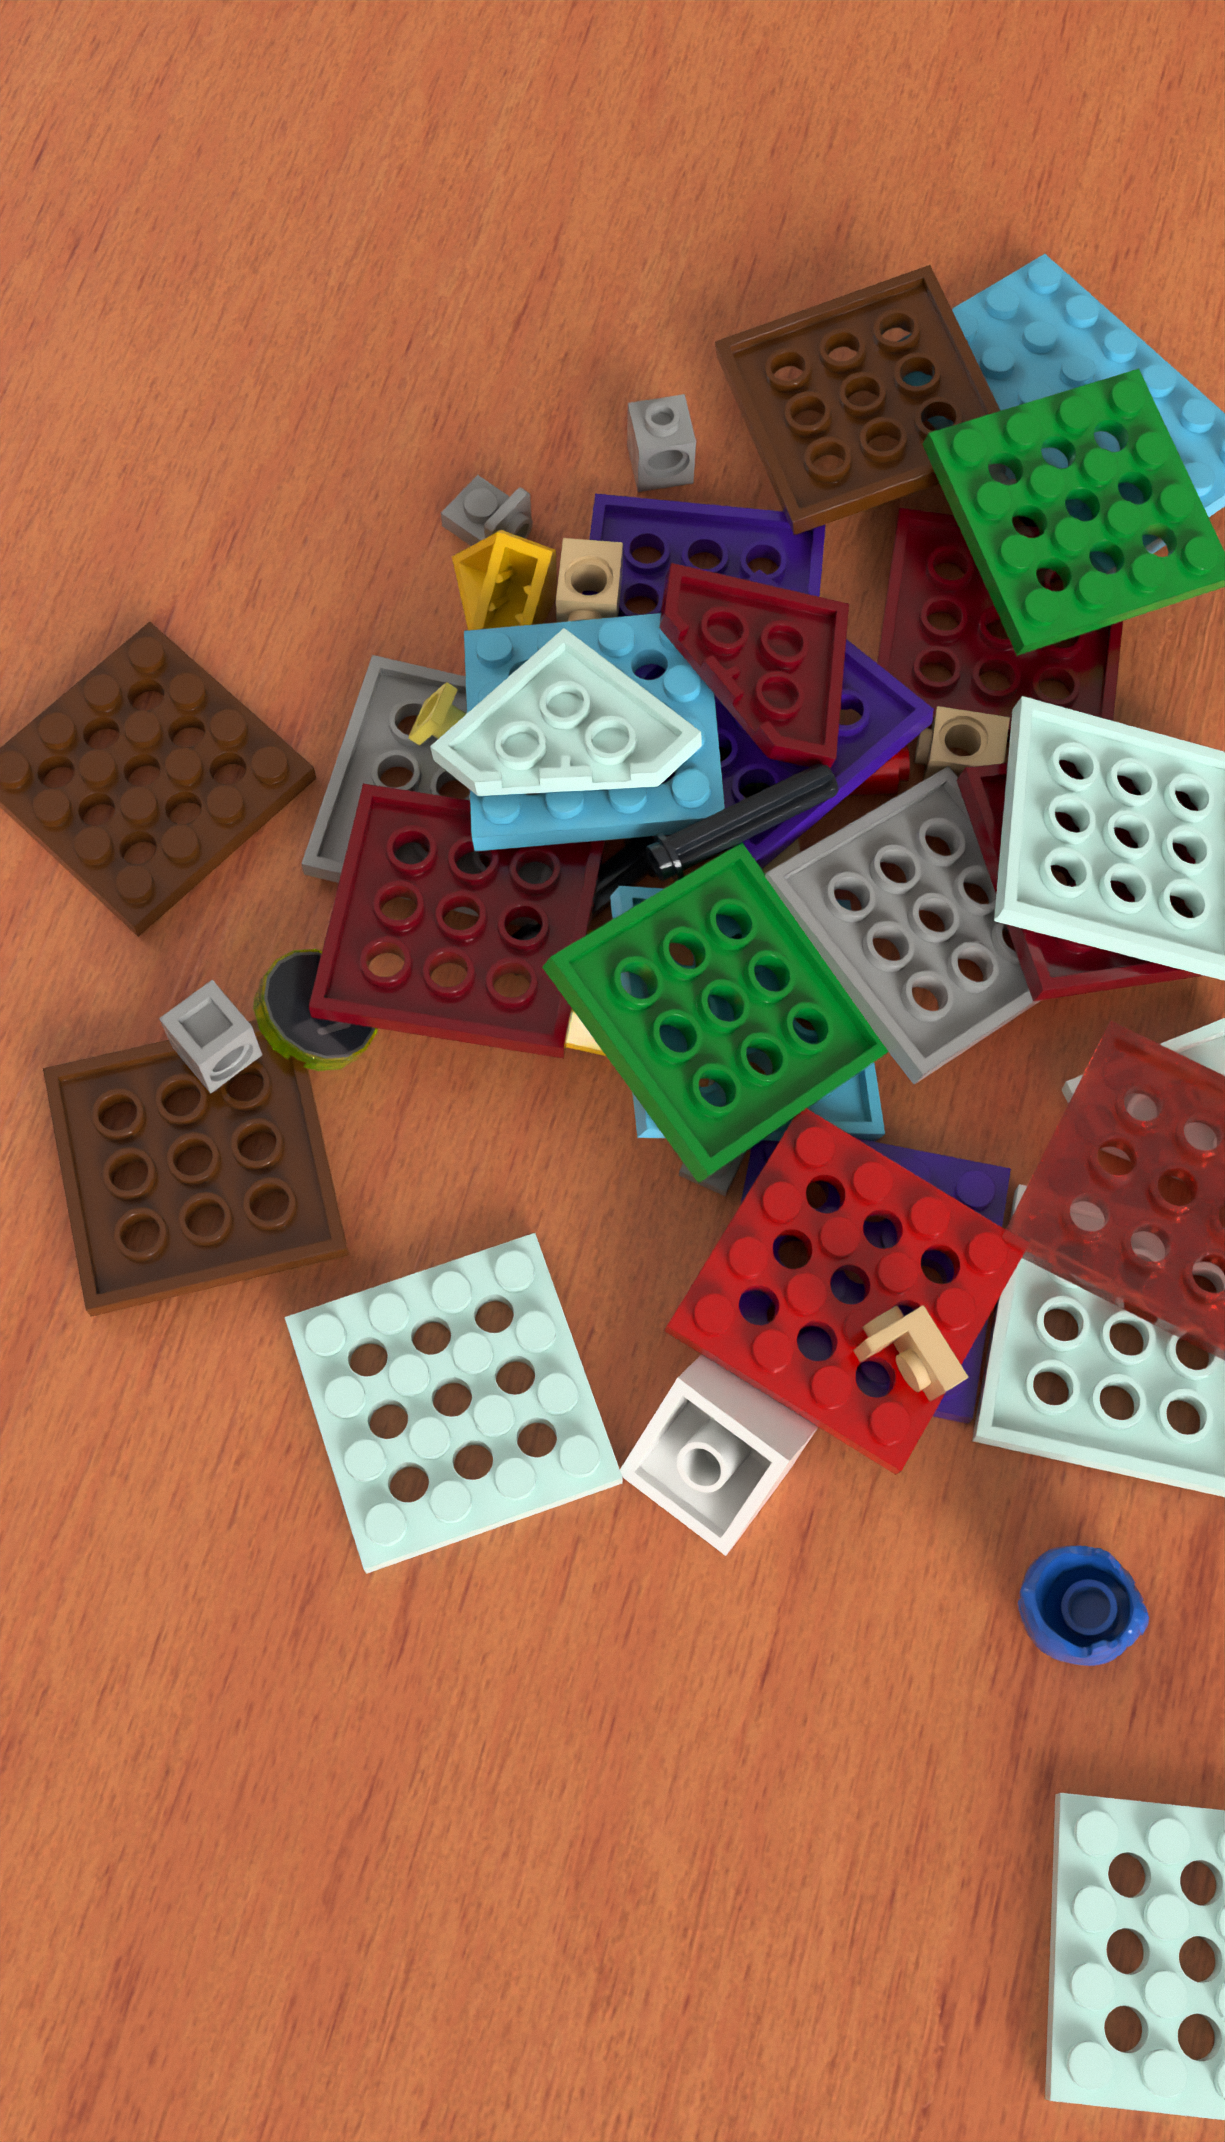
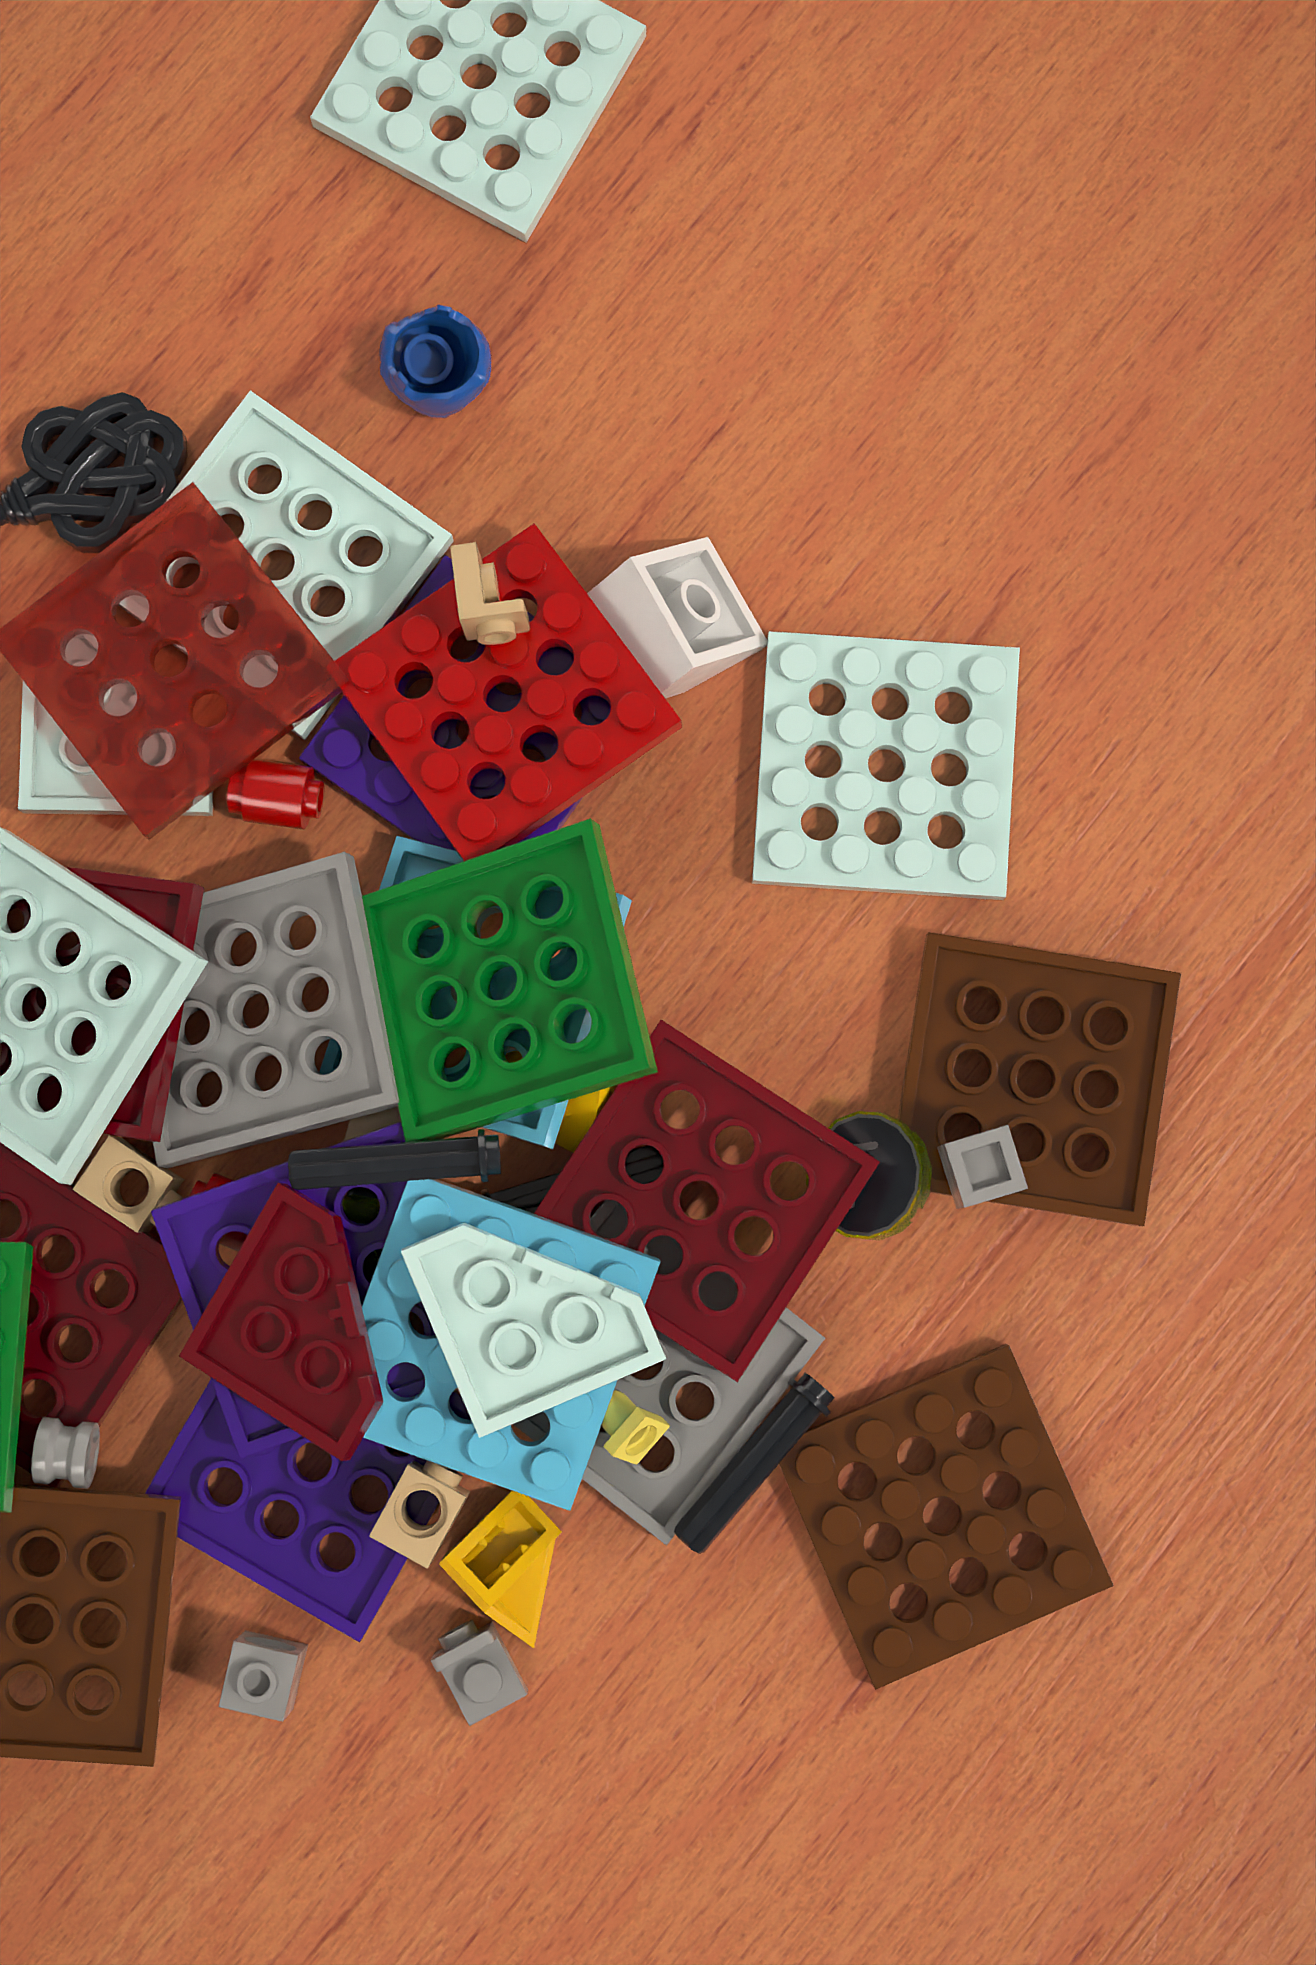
camera: 155 degrees left, 15 degrees up
(299, 802) = (753, 1463): none -> black axle
(904, 522) = (65, 1452): none -> light grey wheel
(1012, 1125) = (276, 794): none -> red brick

